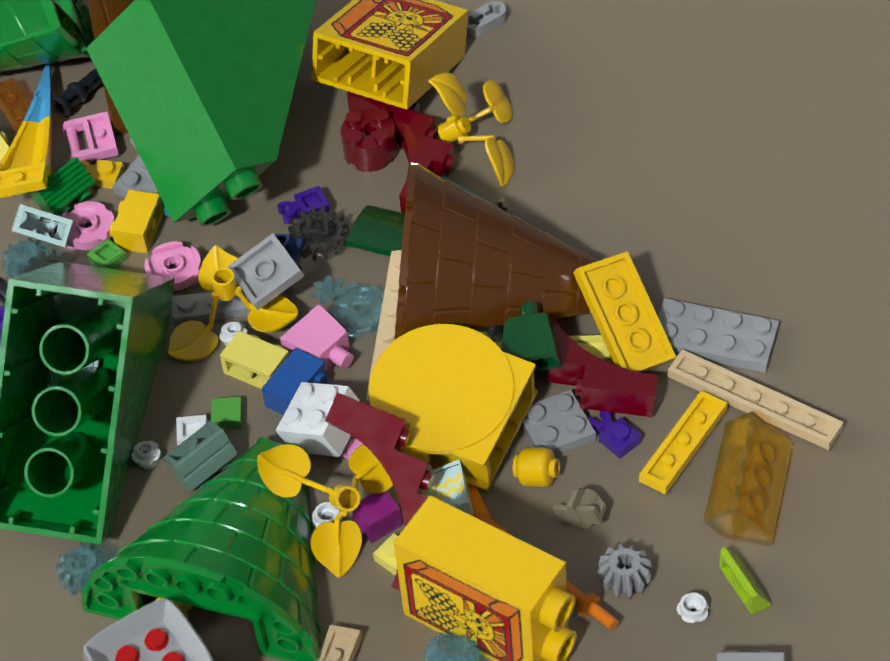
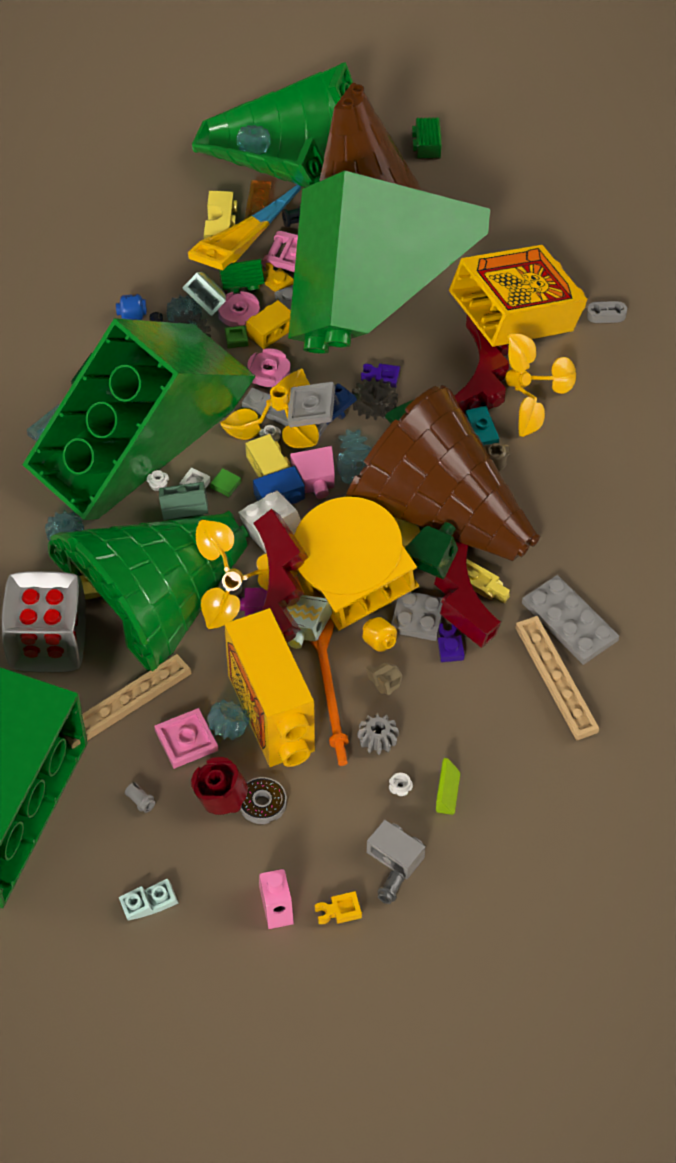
camera: 30 degrees right, 5 degrees up
(369, 139) = (457, 353): dark red brick -> none
(624, 313) = (513, 569): yellow plate -> none
(683, 442) = (486, 676): yellow plate -> none
(749, 481) = (505, 727): clear yellow slope -> none

